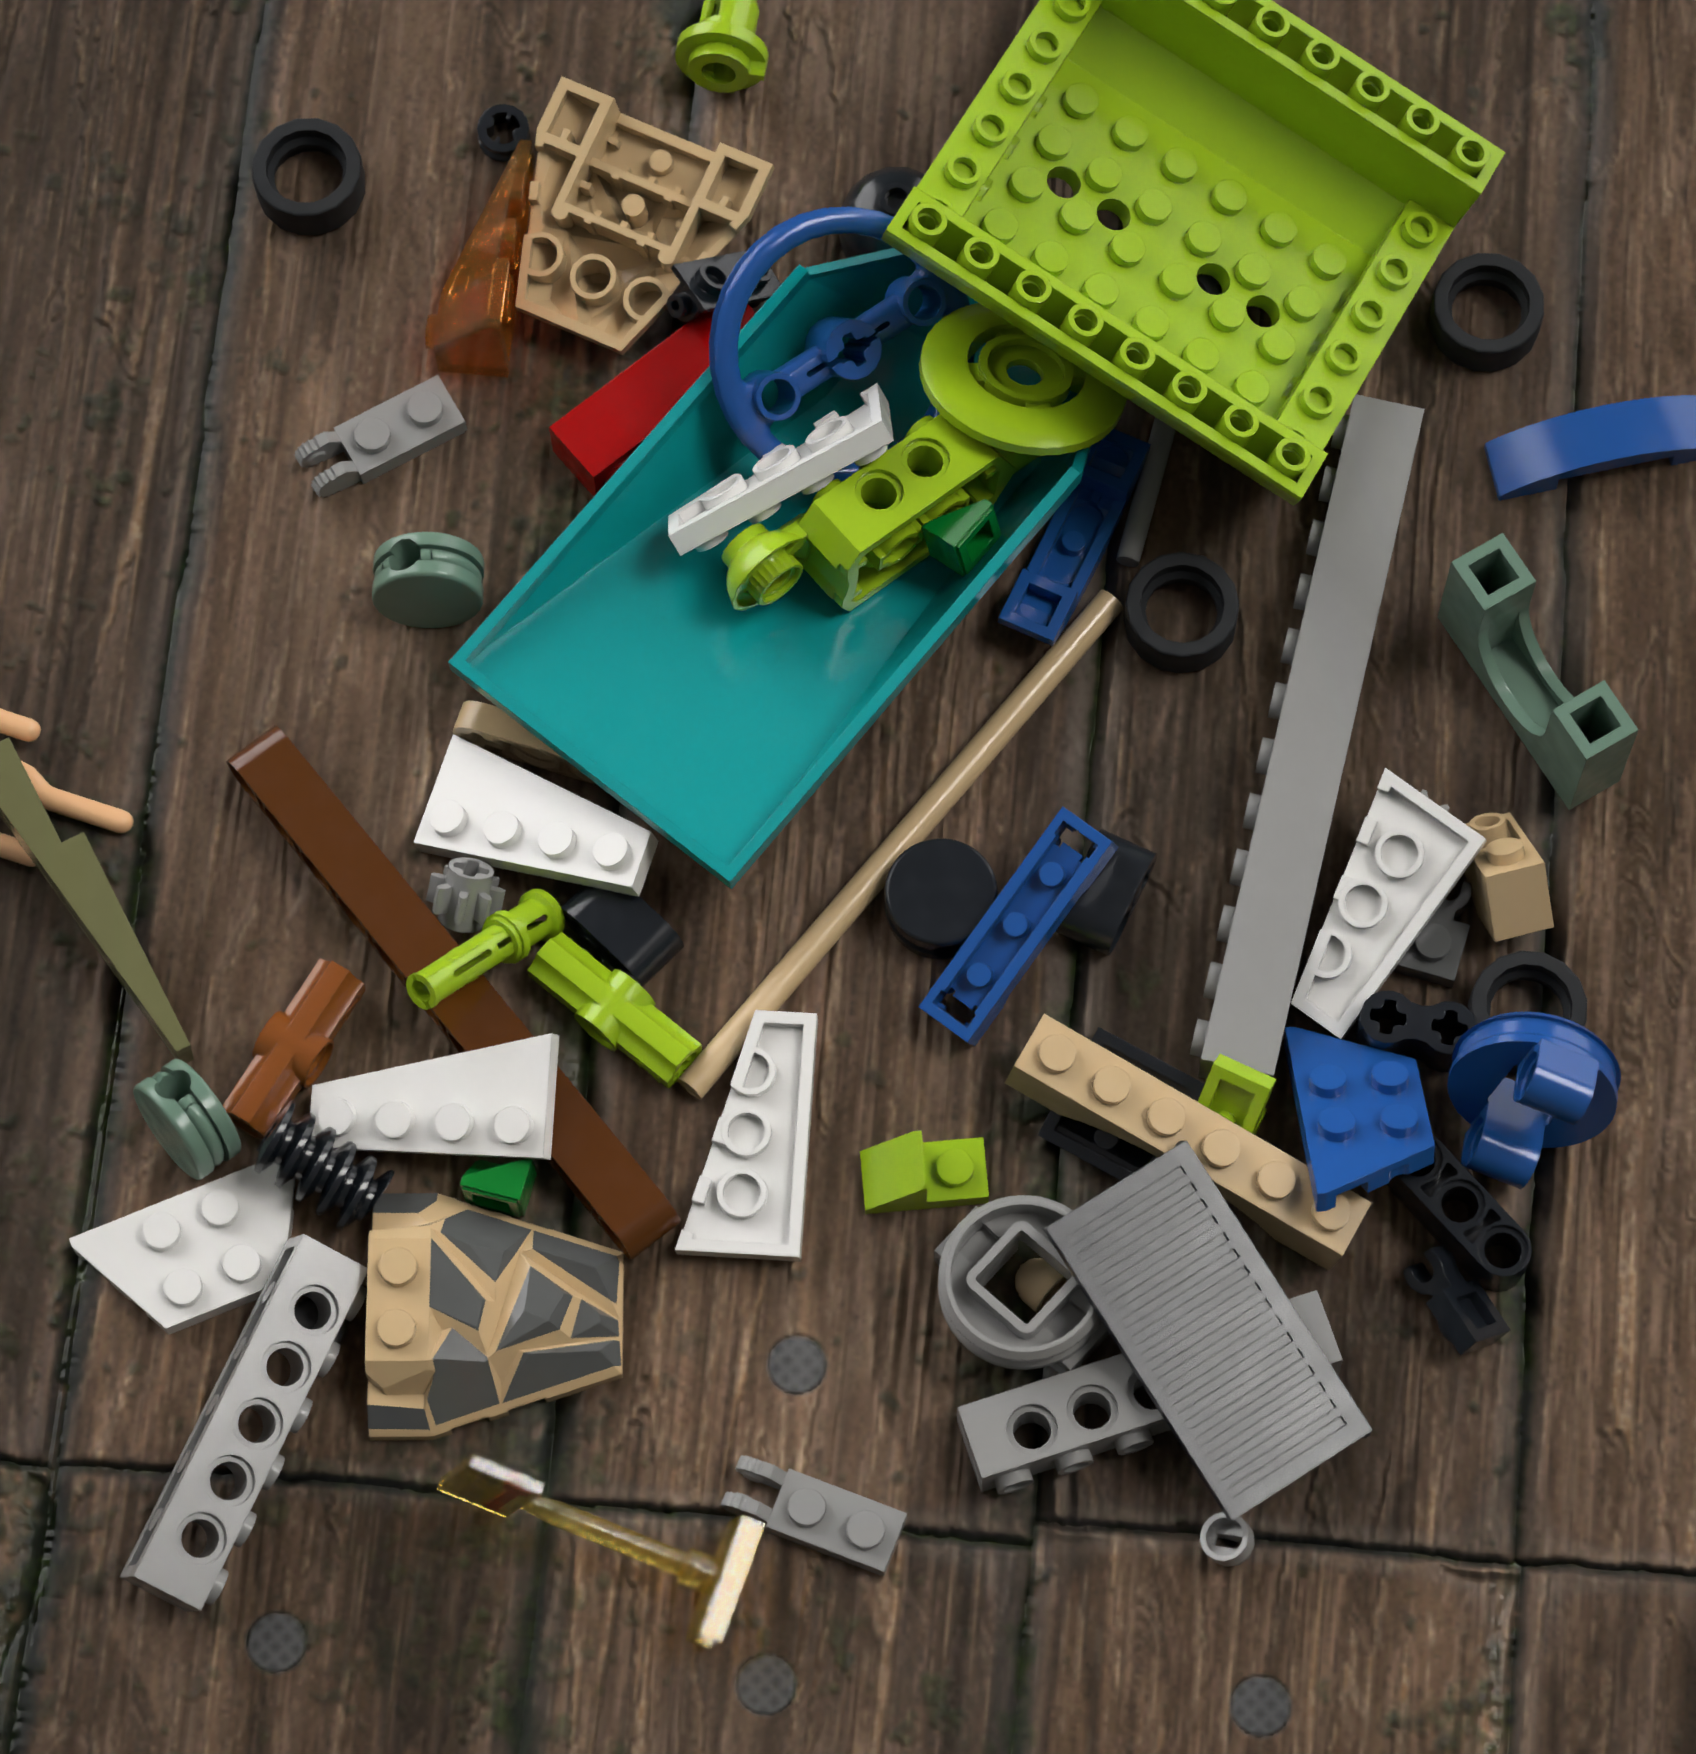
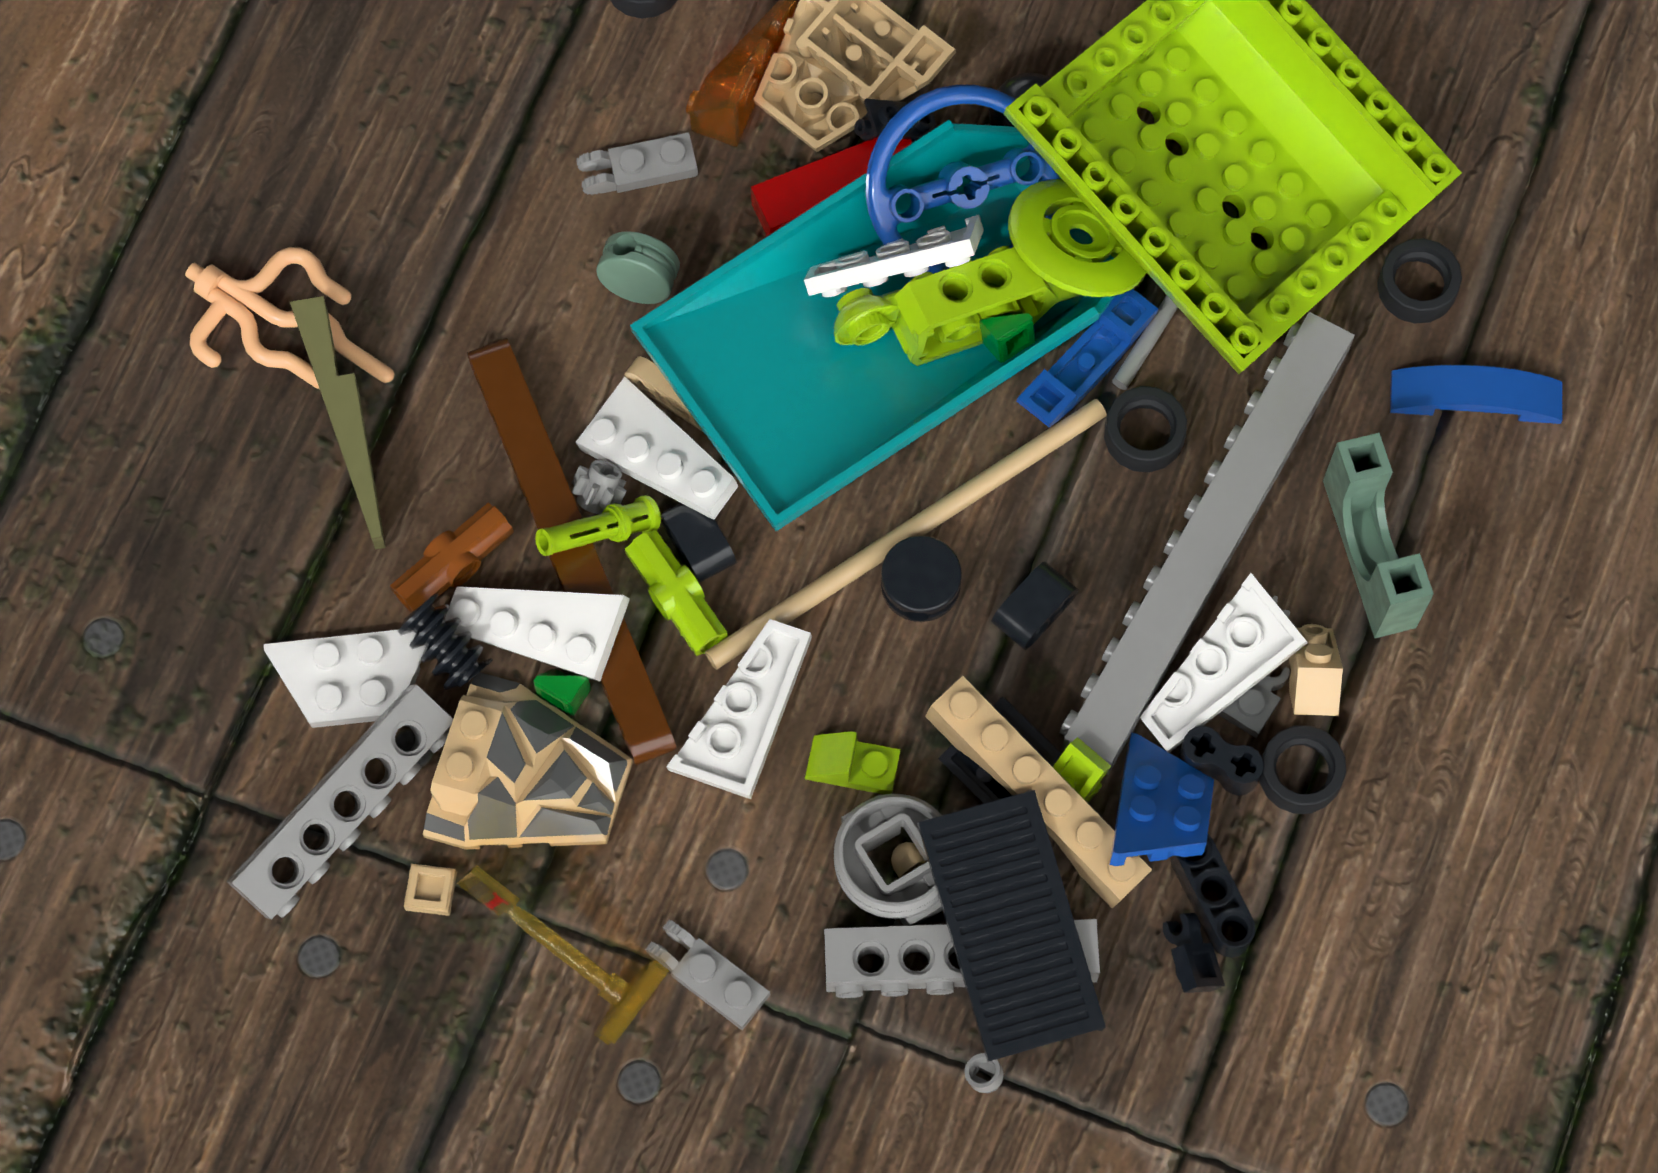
camera: 15 degrees right, 0 degrees up
(187, 1119) = (365, 585): sand green head -> none
(402, 1508) = (430, 889): none -> tan tile
(1018, 926) = (966, 611): blue piece -> none
(1559, 1096) = (1302, 833): blue piece -> none

